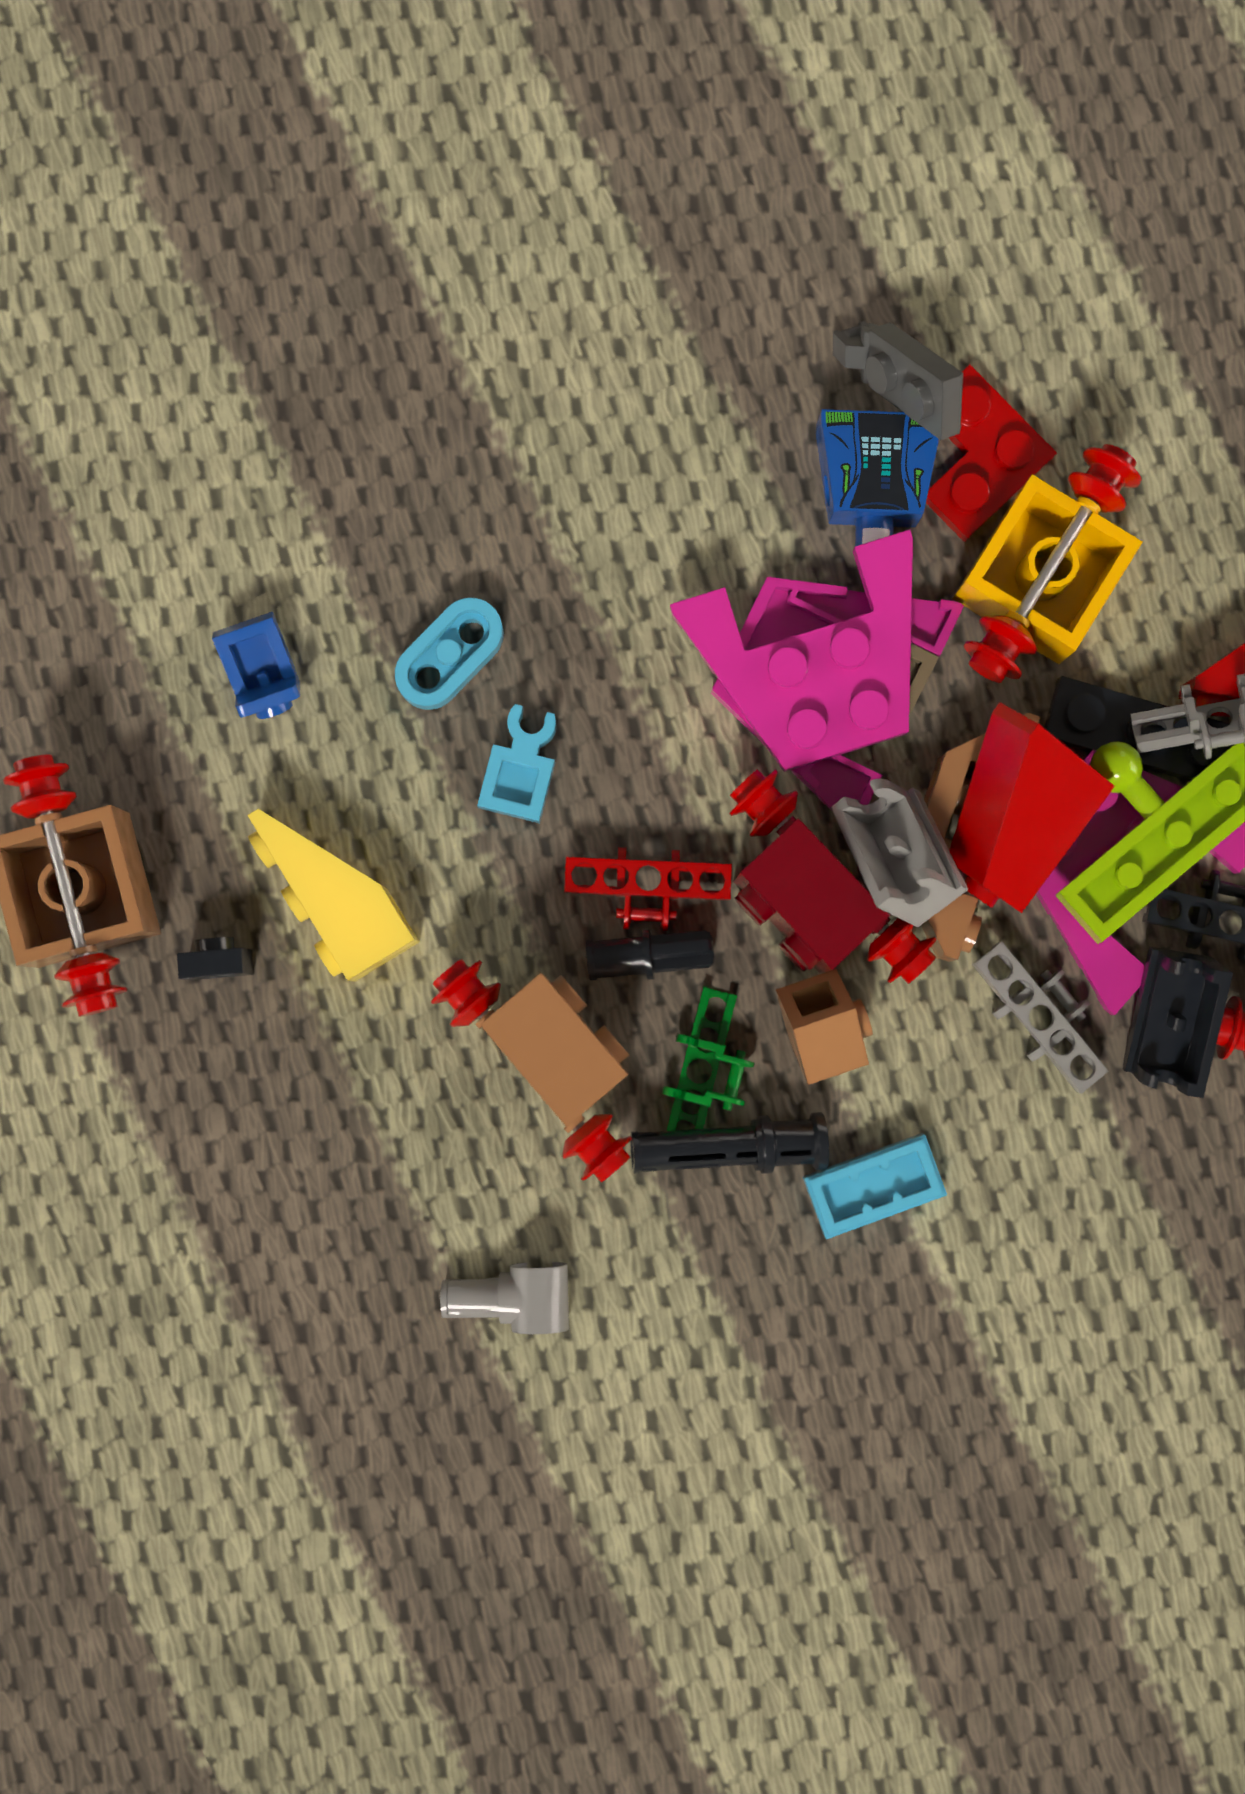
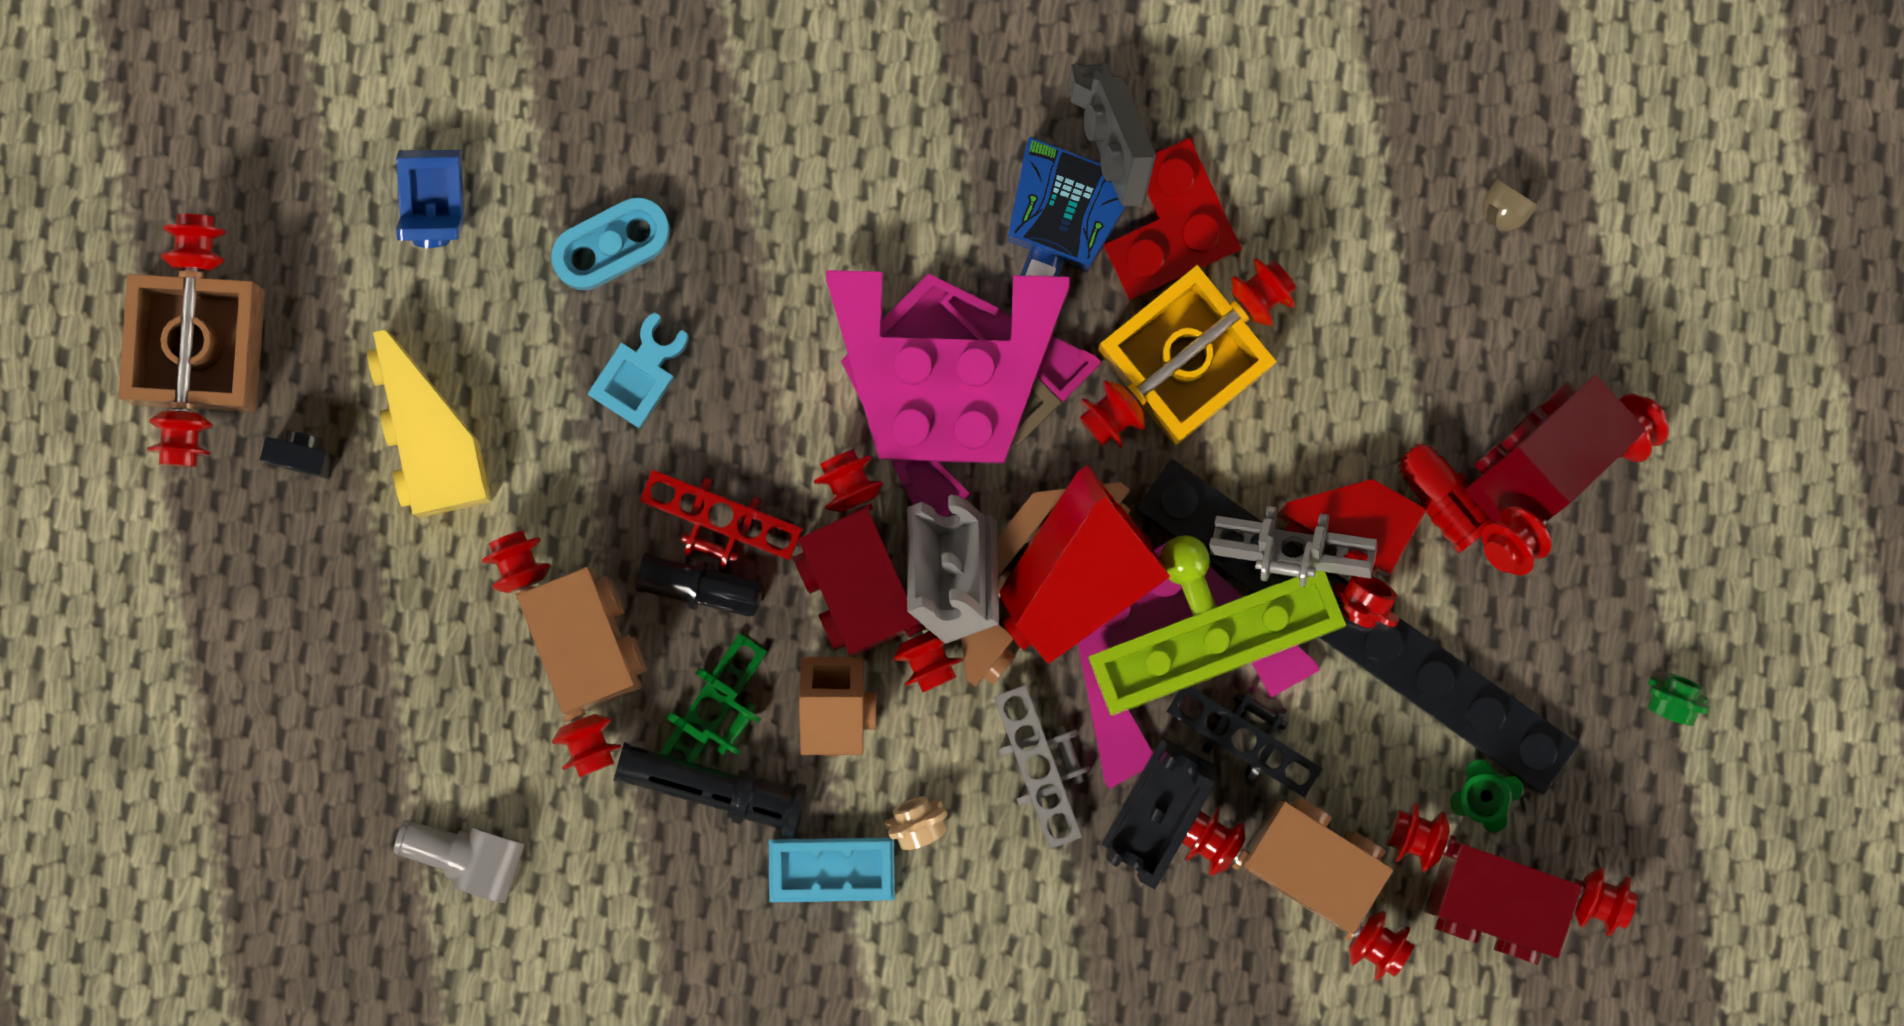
camera: 20 degrees right, 0 degrees up
(942, 1112) = (917, 822): none -> tan plate

